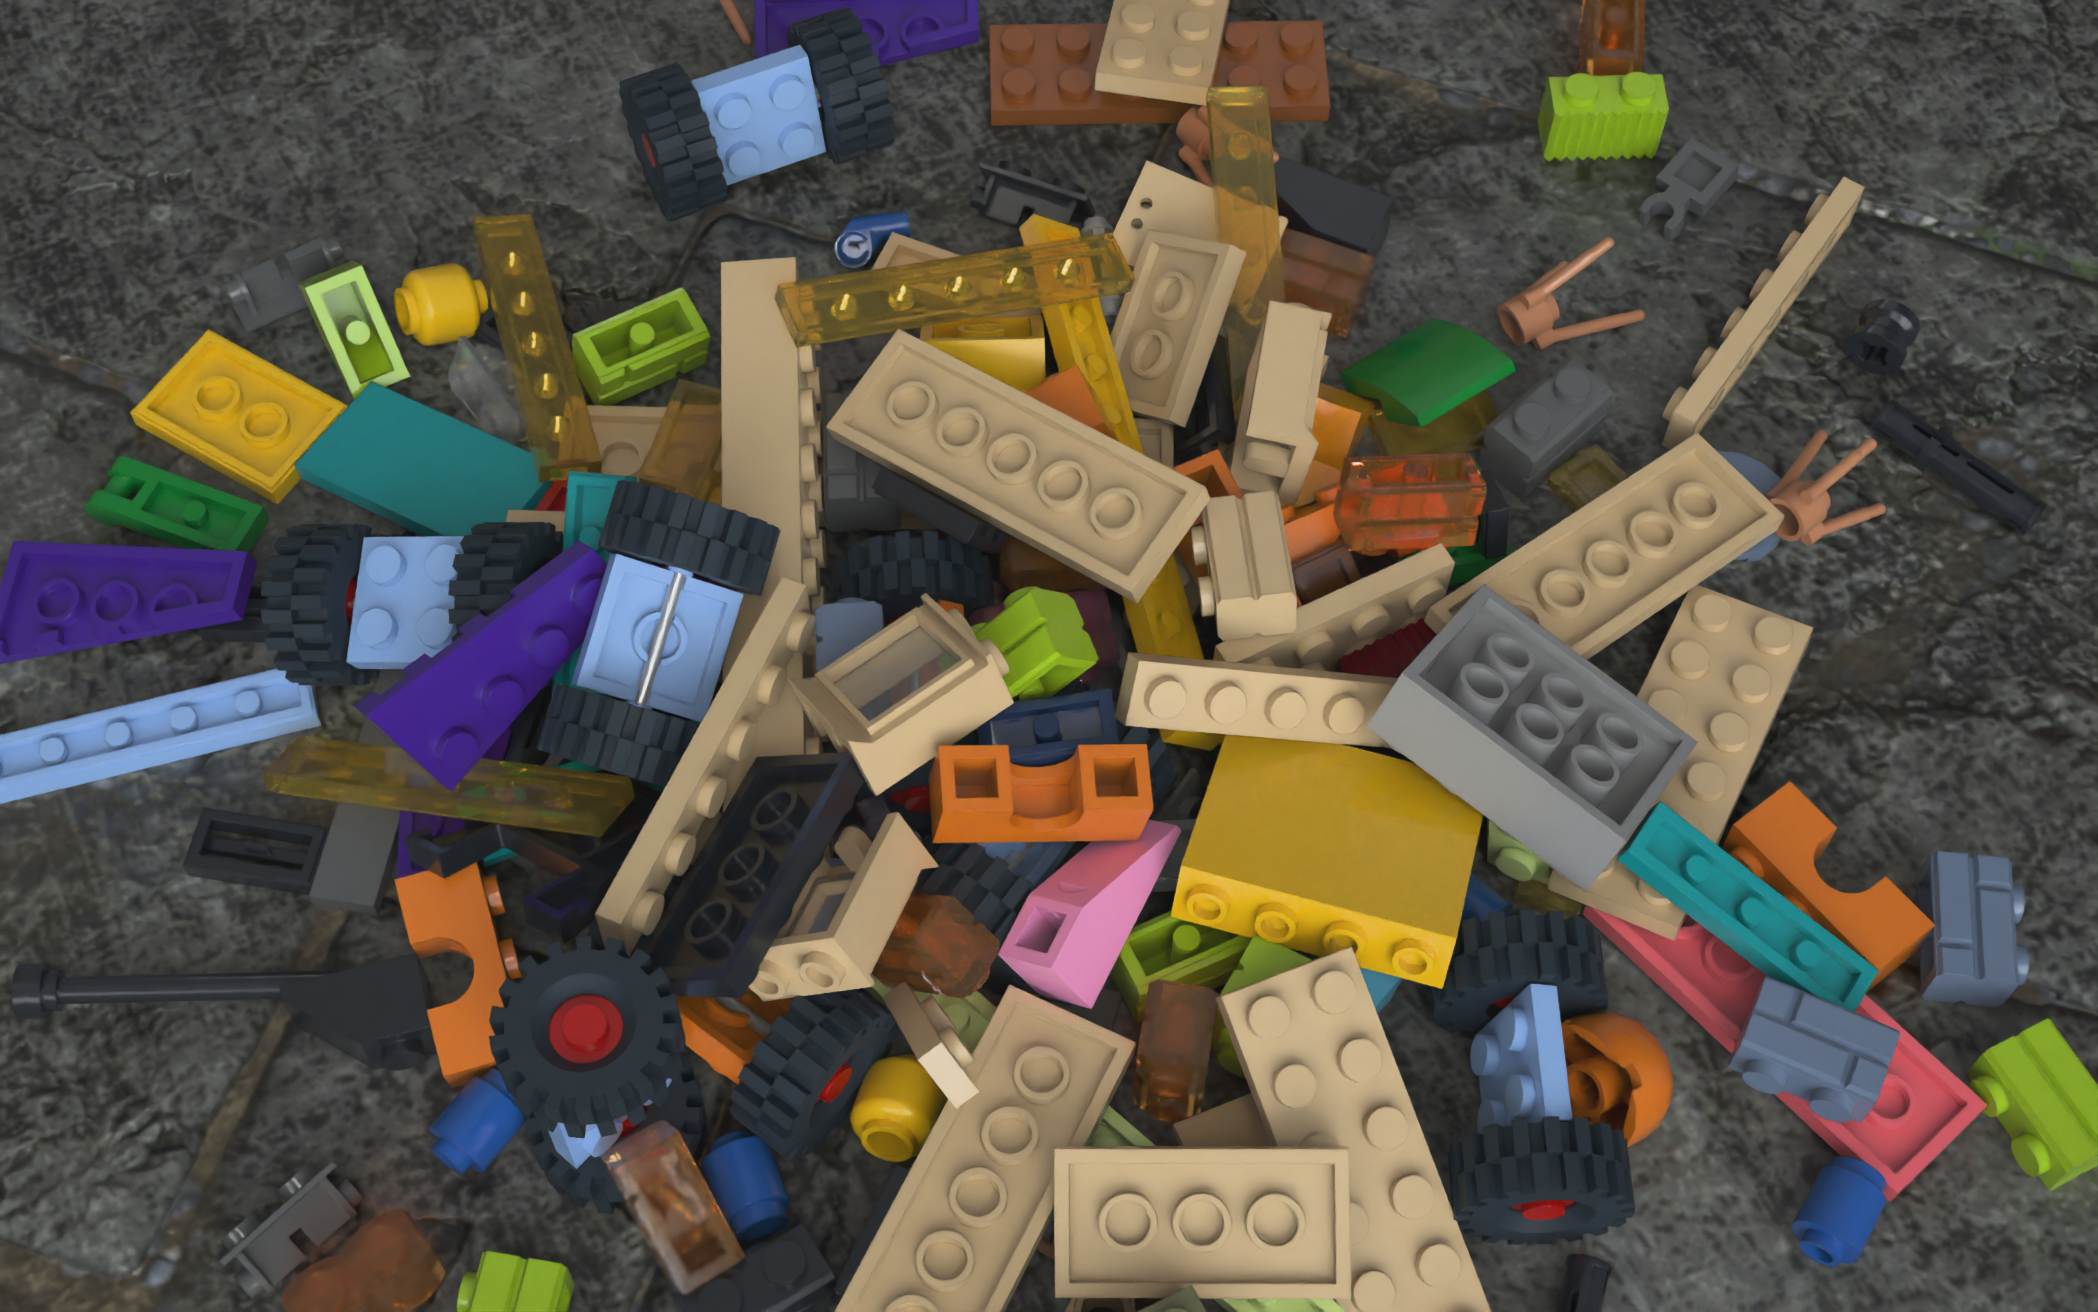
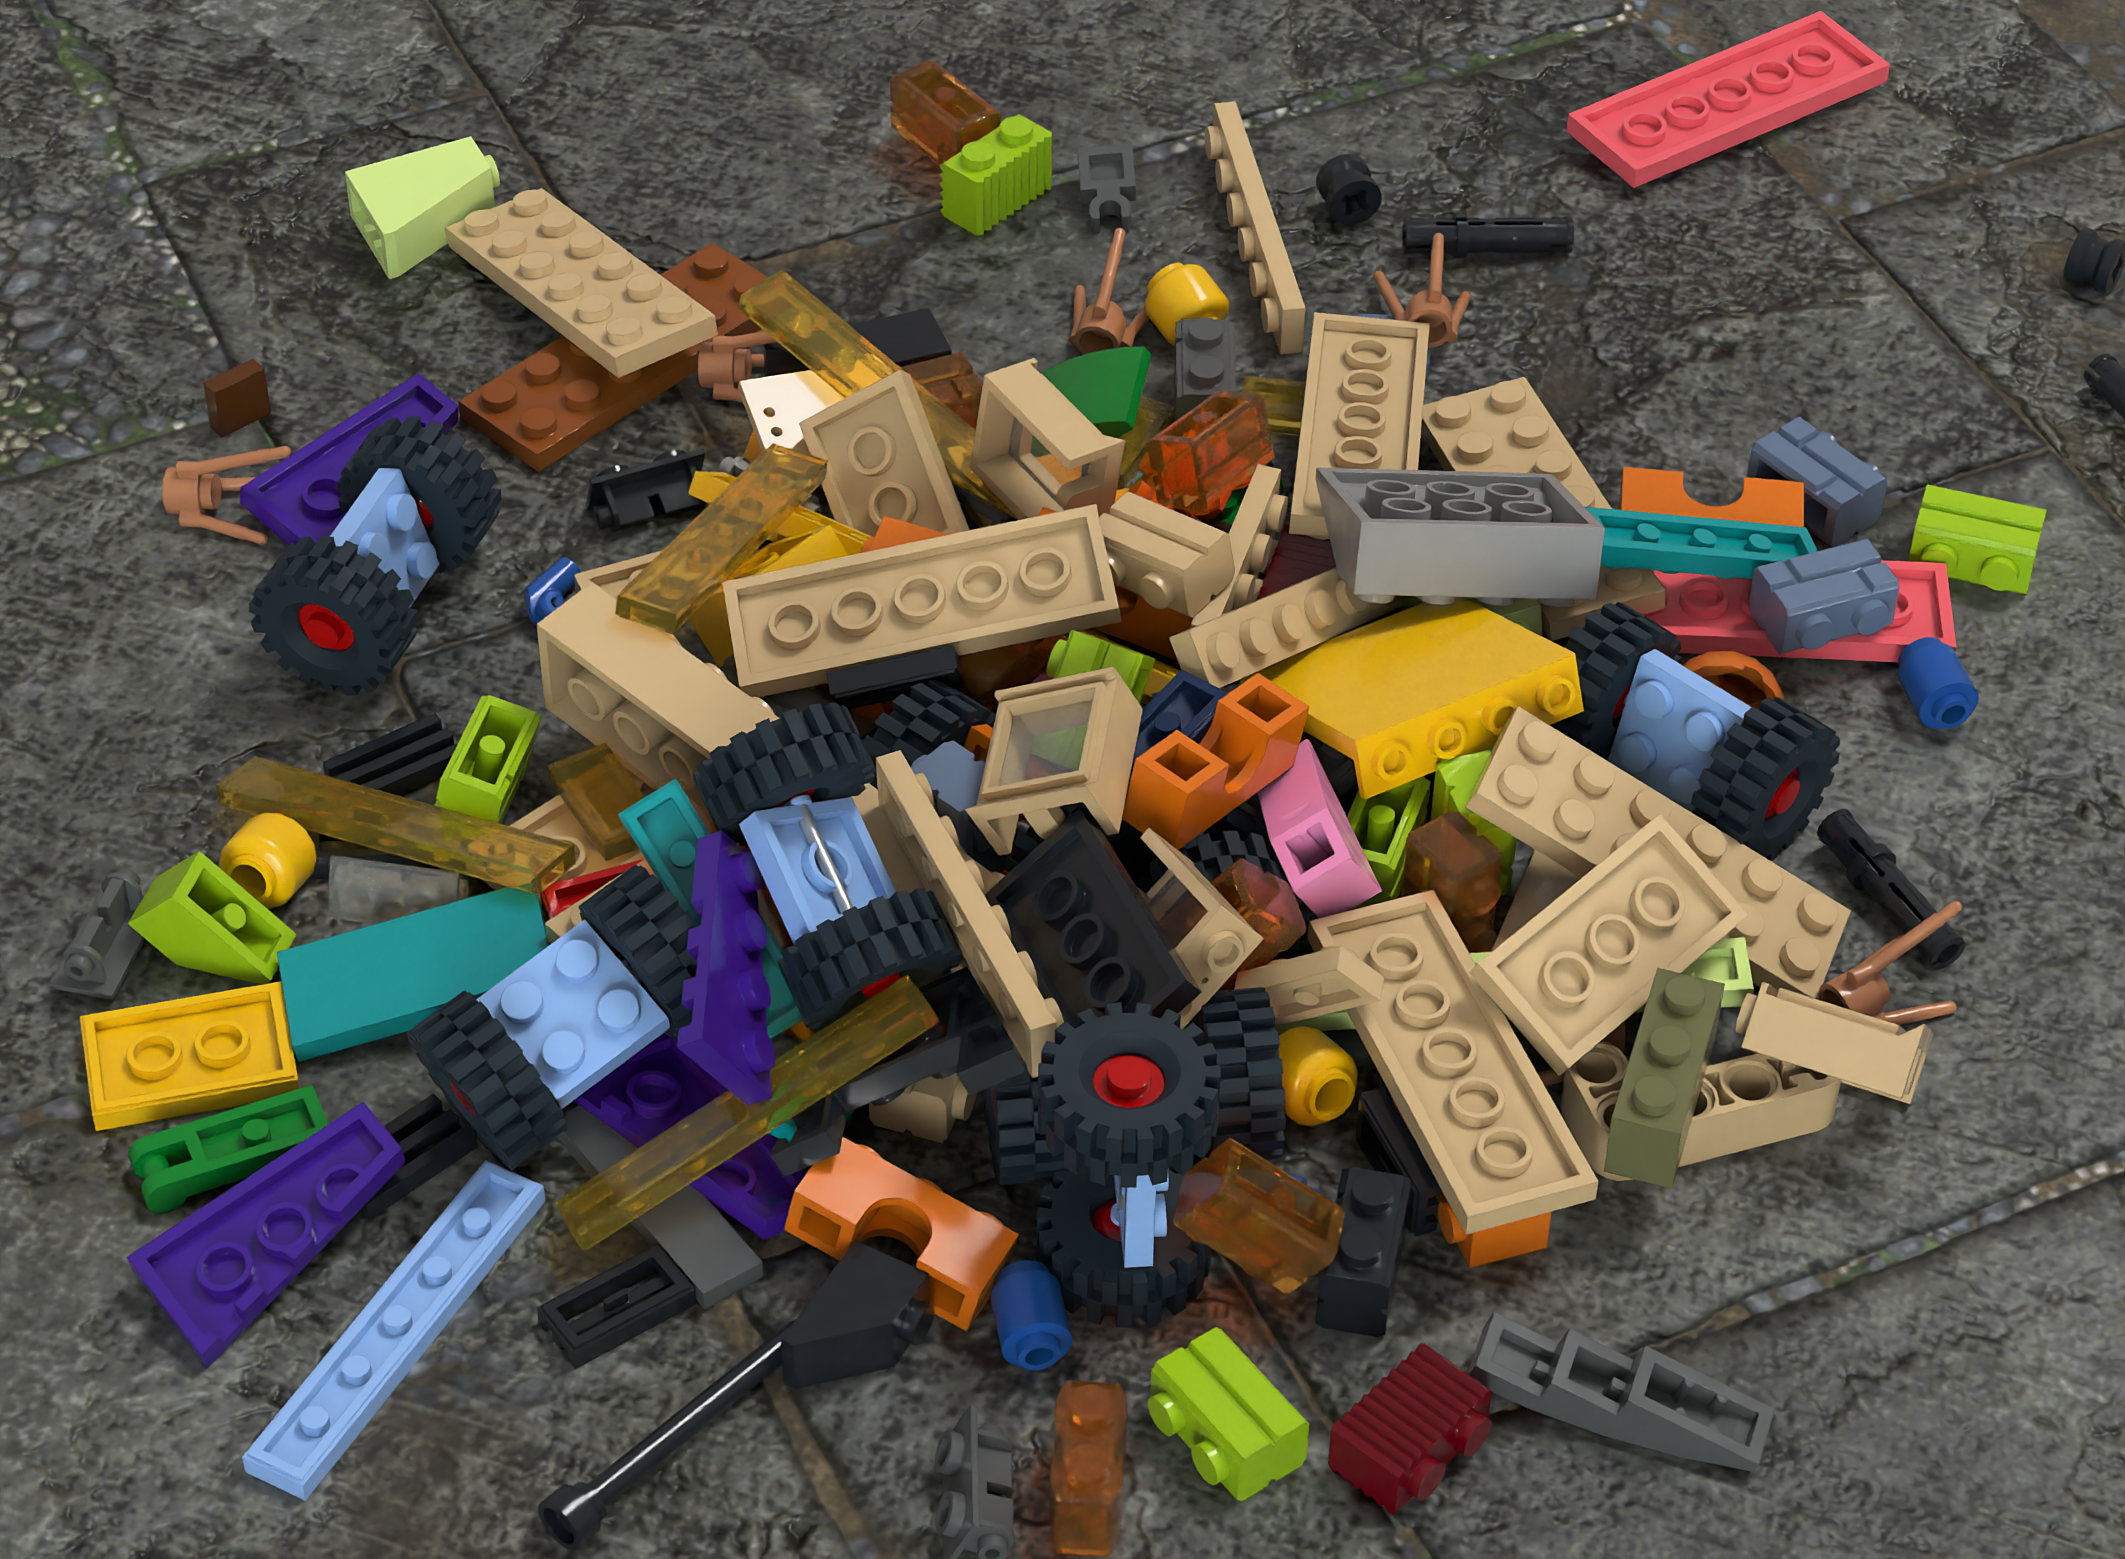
camera: 45 degrees left, 15 degrees down
(613, 279) = (392, 754): none -> black tile
(1618, 343) = (1181, 294): none -> yellow head

